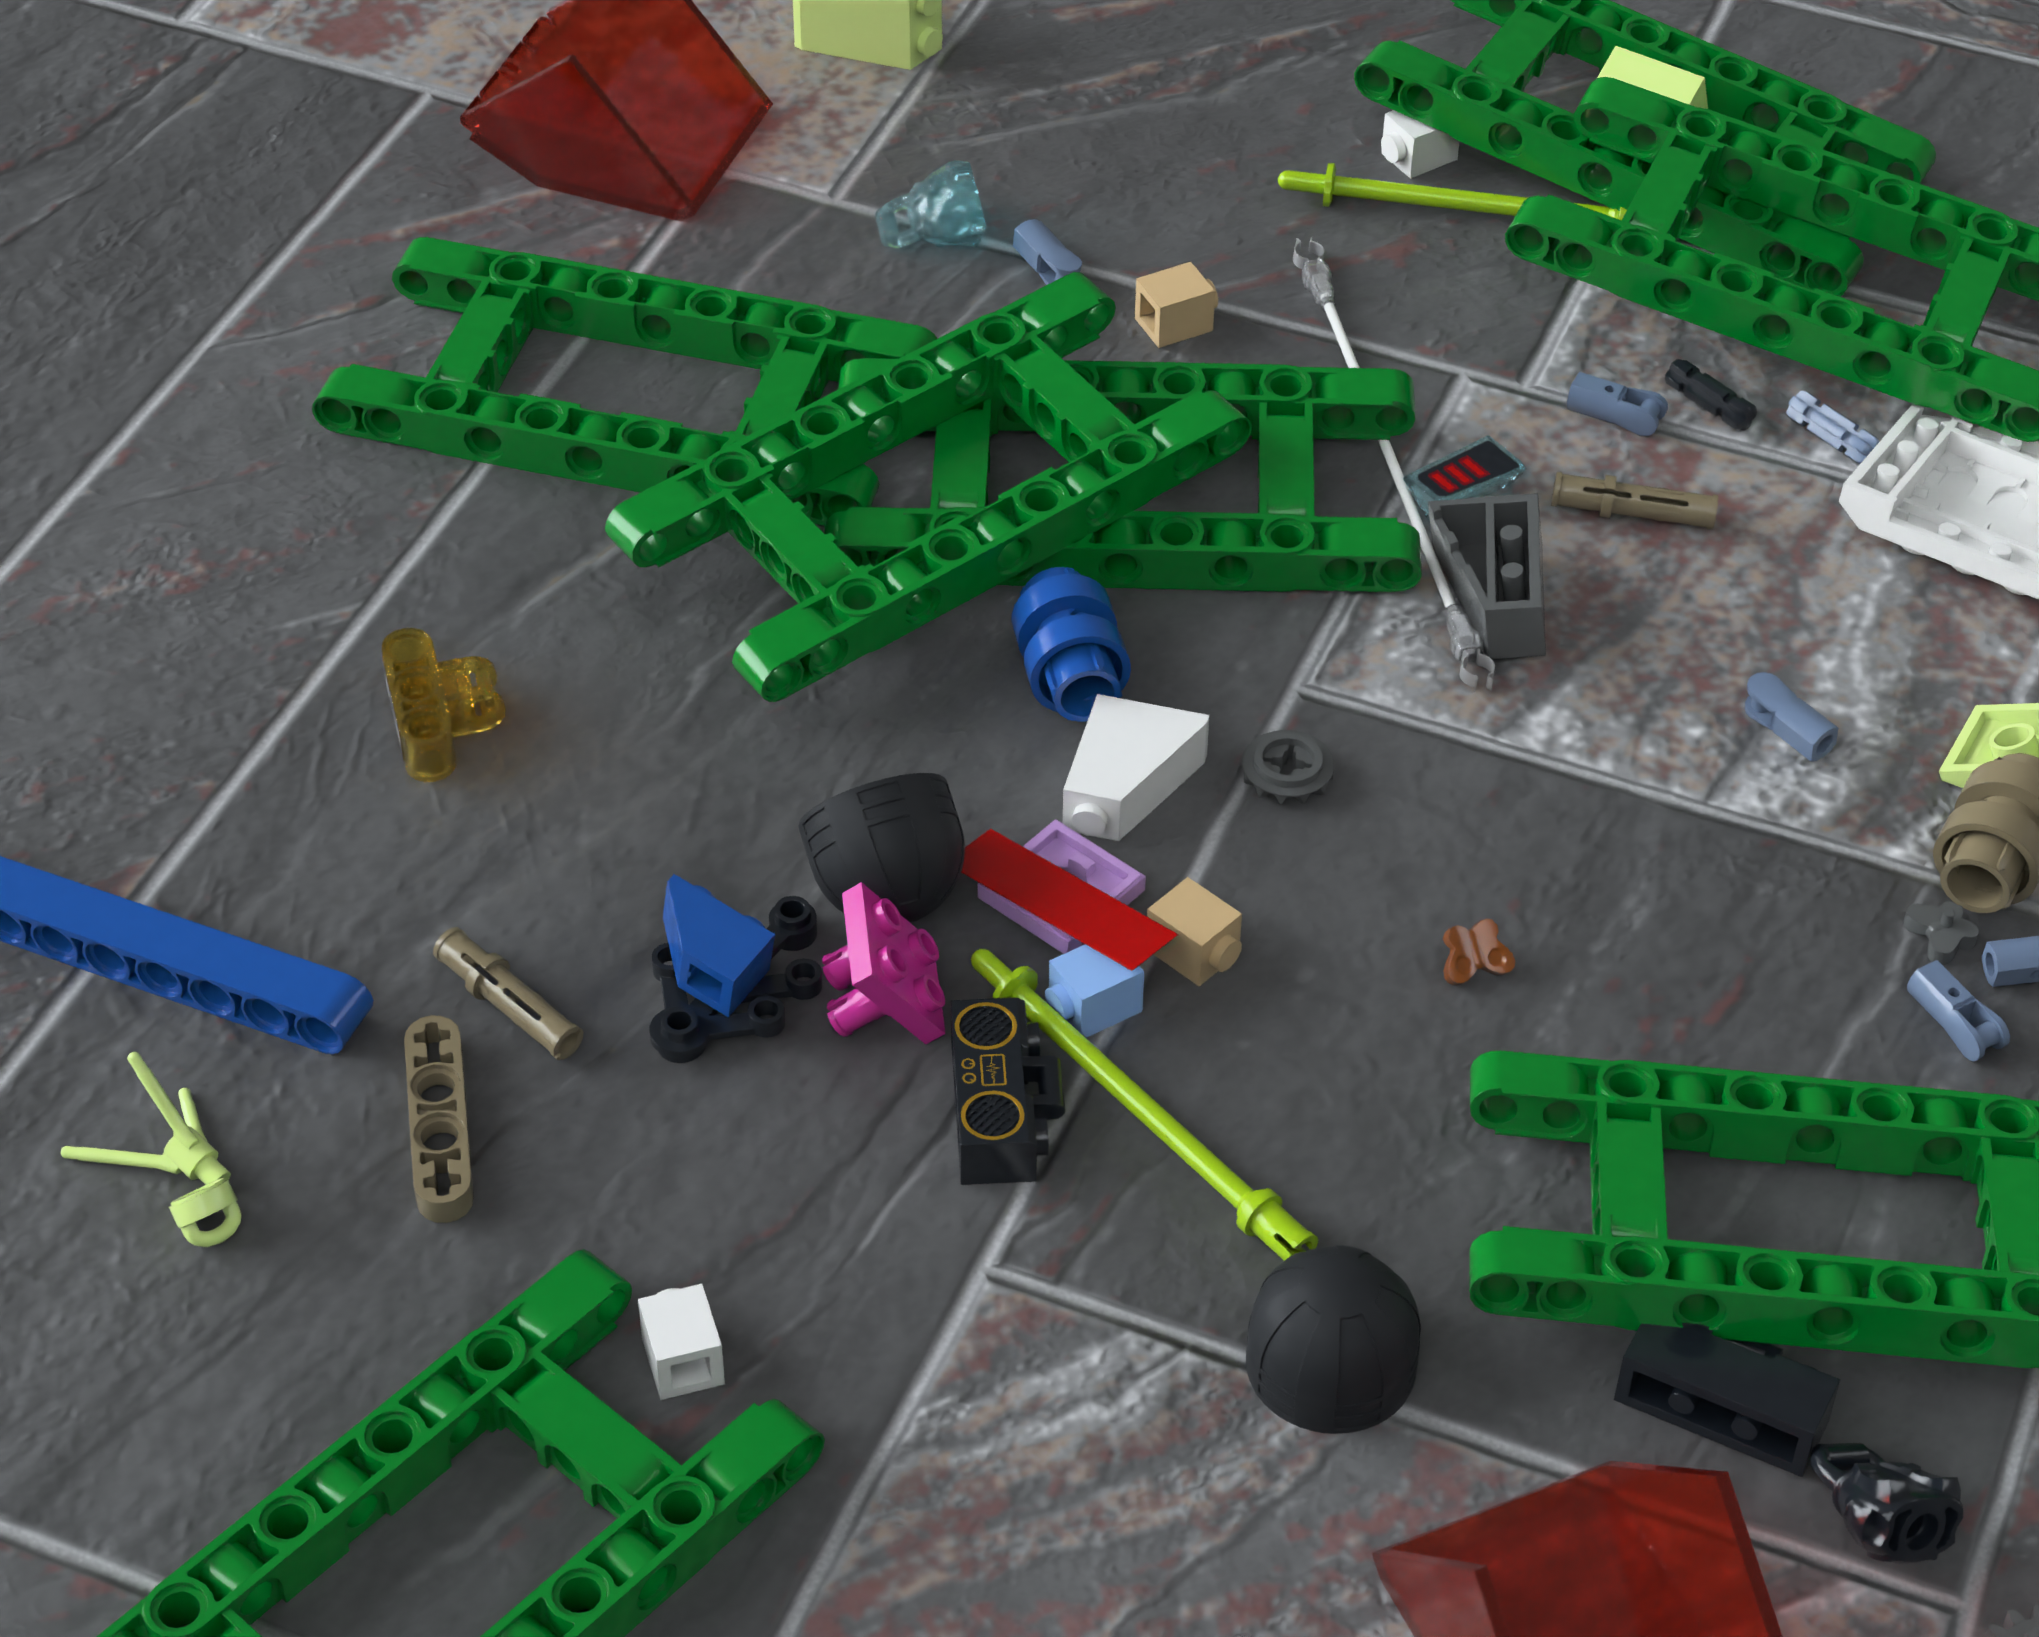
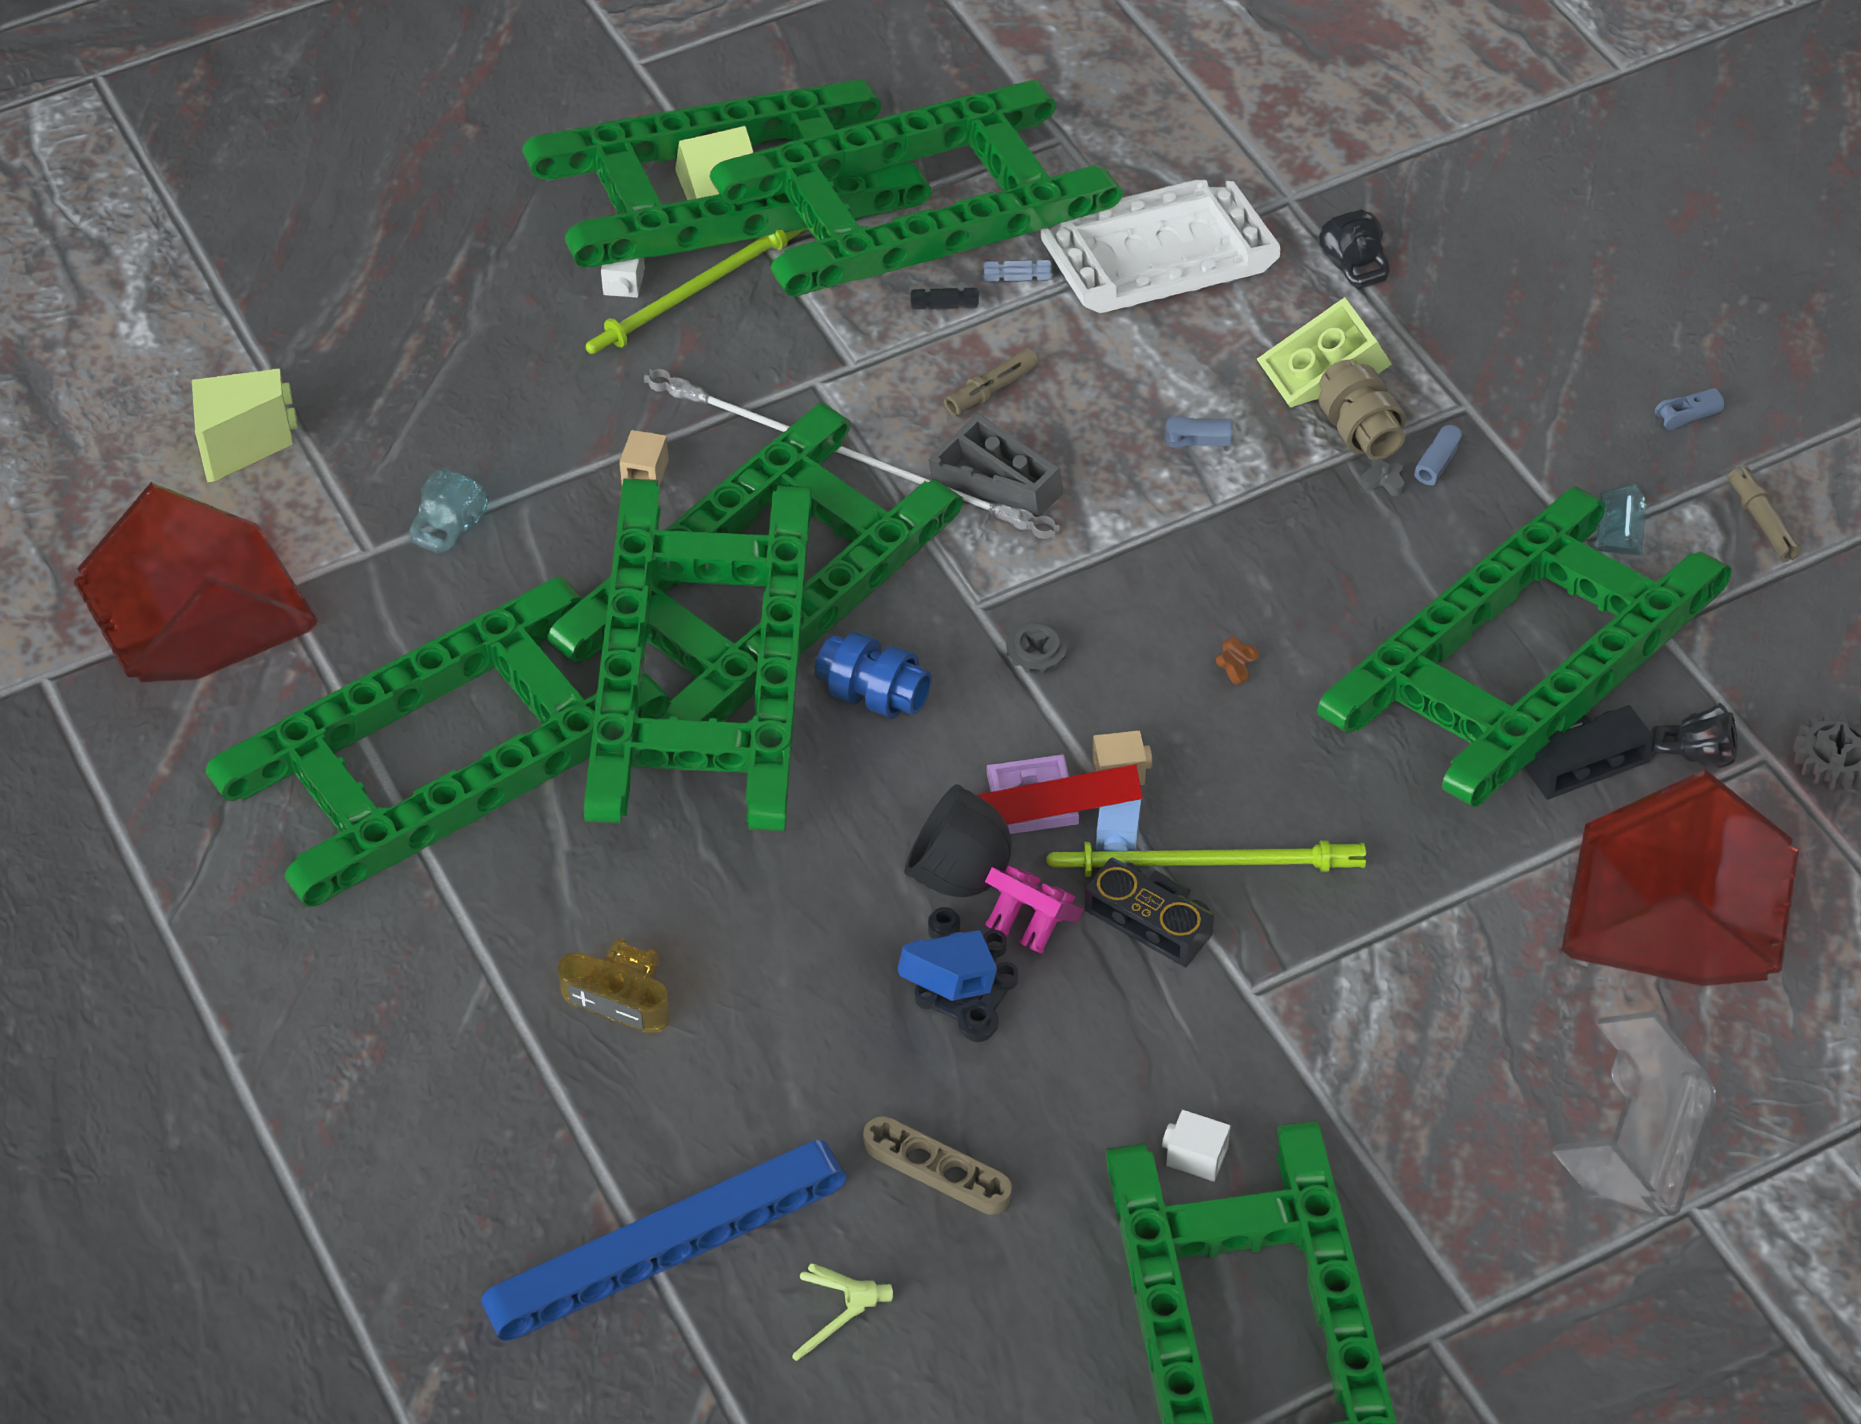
camera: 50 degrees left, 5 degrees up
(202, 1203) = (910, 1308): yellowish green tile -> none
(464, 955) = (827, 1084): dark tan pin -> none
(1044, 251) = (540, 488): sand blue bar -> none
(1130, 764) = (973, 711): white slope -> none
(1333, 1340) = (1433, 878): black piece -> none
(1466, 473) = (907, 435): slope -> none
(1615, 403) = (912, 339): sand blue bar -> none
(1962, 1016) = (1443, 508): sand blue bar -> none

